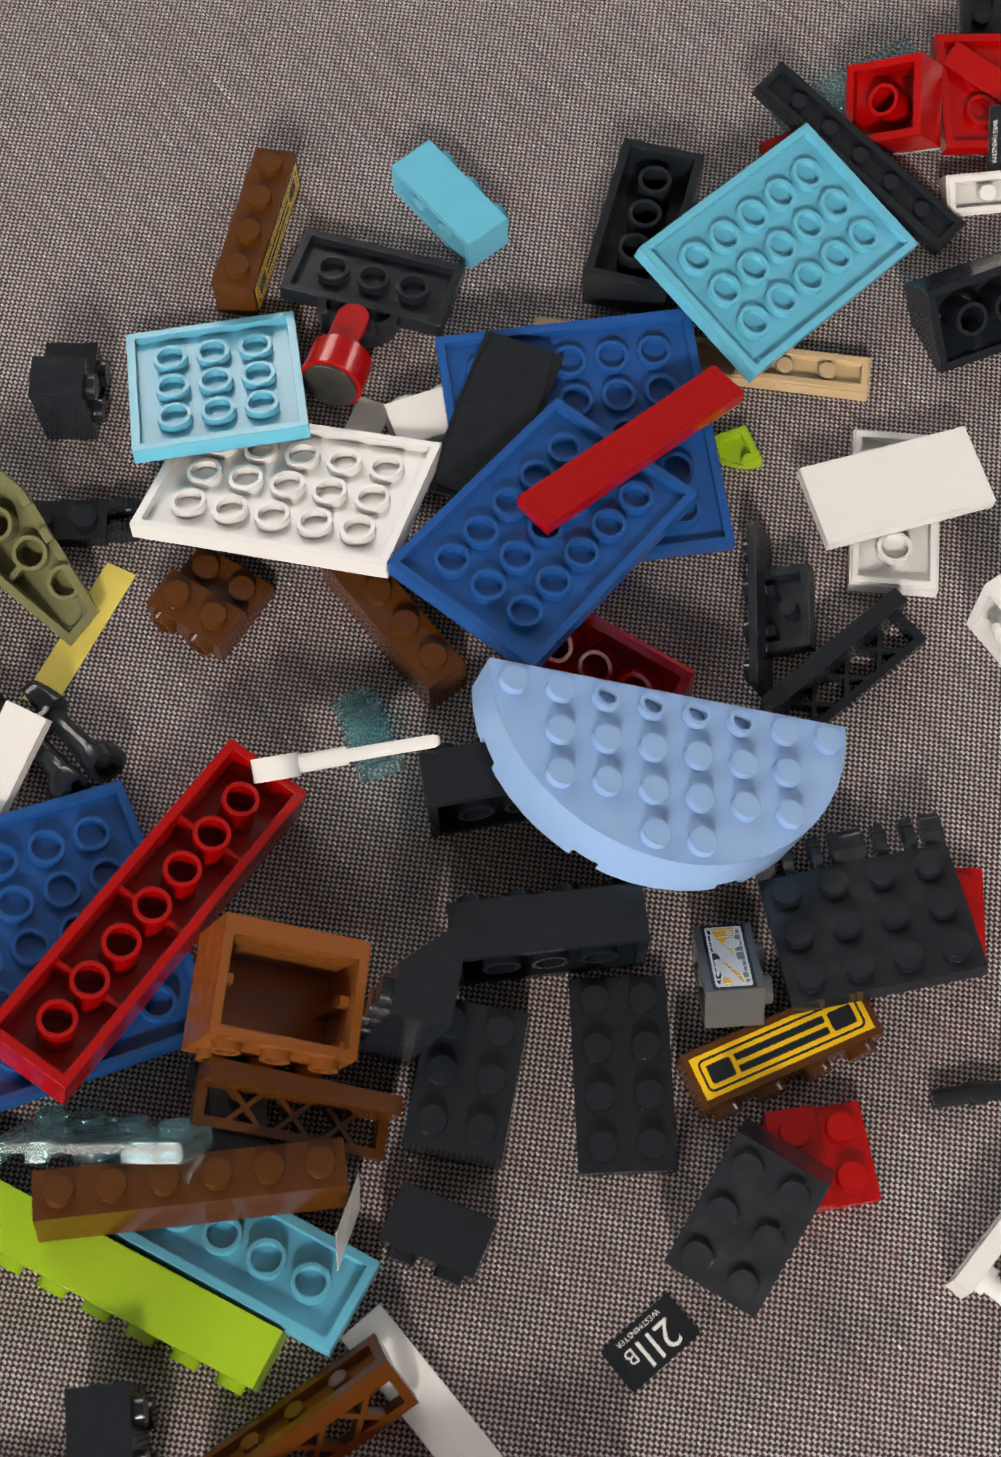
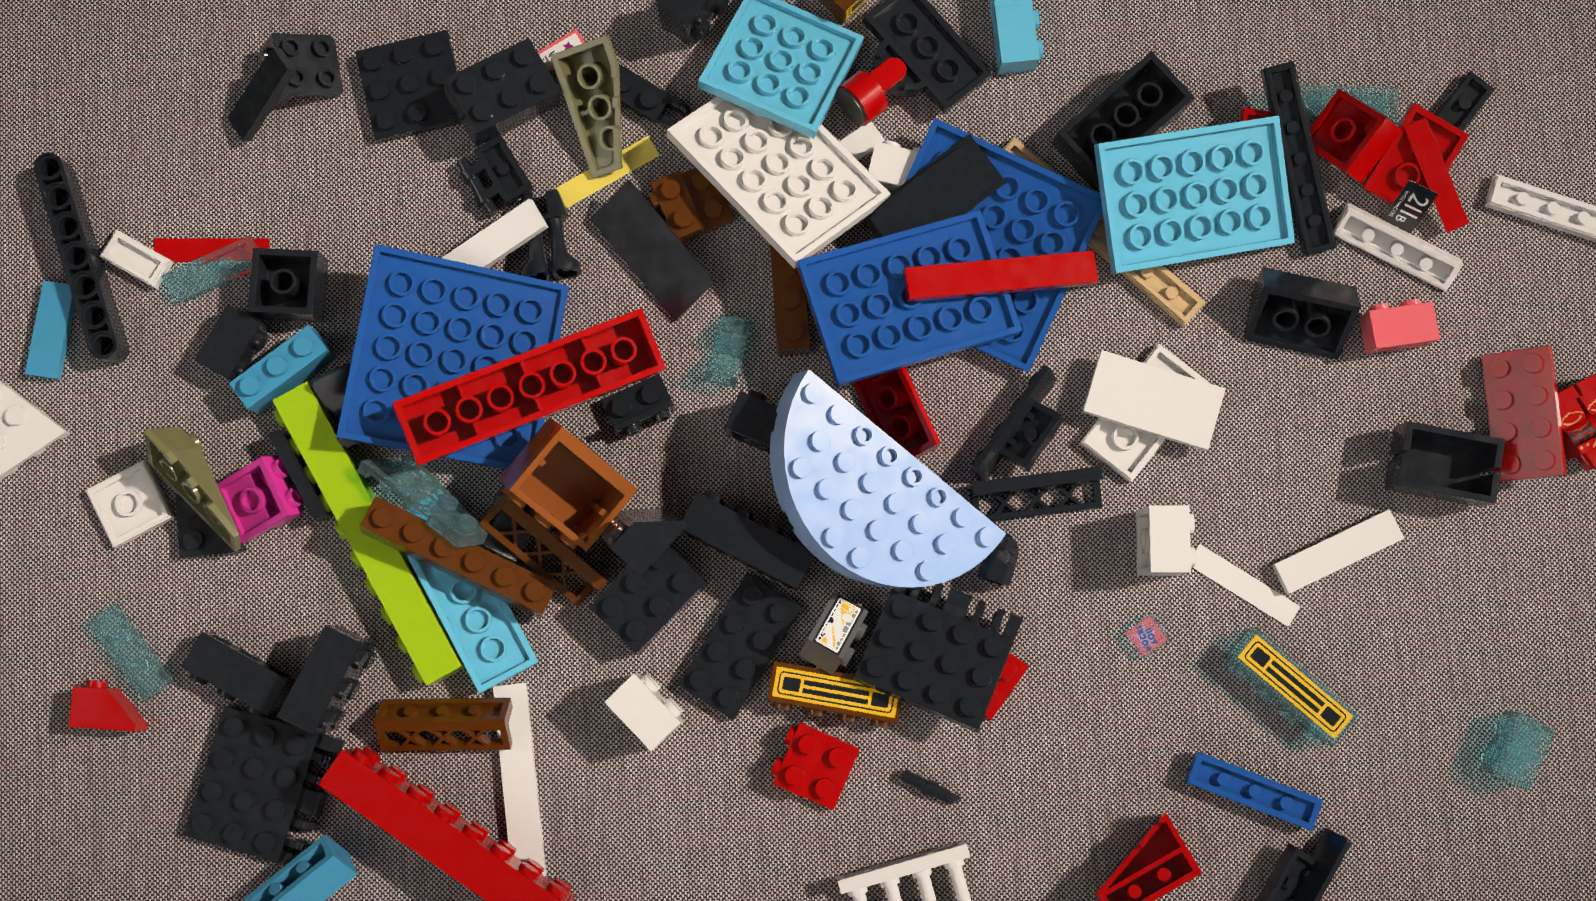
camera: 30 degrees right, 15 degrees up
(198, 677) = (652, 250): none -> black piece
(294, 764) = (661, 349): white piece -> none
(299, 868) = (638, 406): none -> black bracket
(348, 1221) = (540, 624): white sticker -> none
(437, 1234) = (578, 668): black brick -> none
(562, 1224) = (645, 710): none -> white brick
(650, 1342) = (656, 799): black sticker -> none
(738, 449) = (1077, 308): lime tile -> none
(750, 1217) = (749, 774): black brick -> none
(863, 775) = (1000, 563): none -> black rock

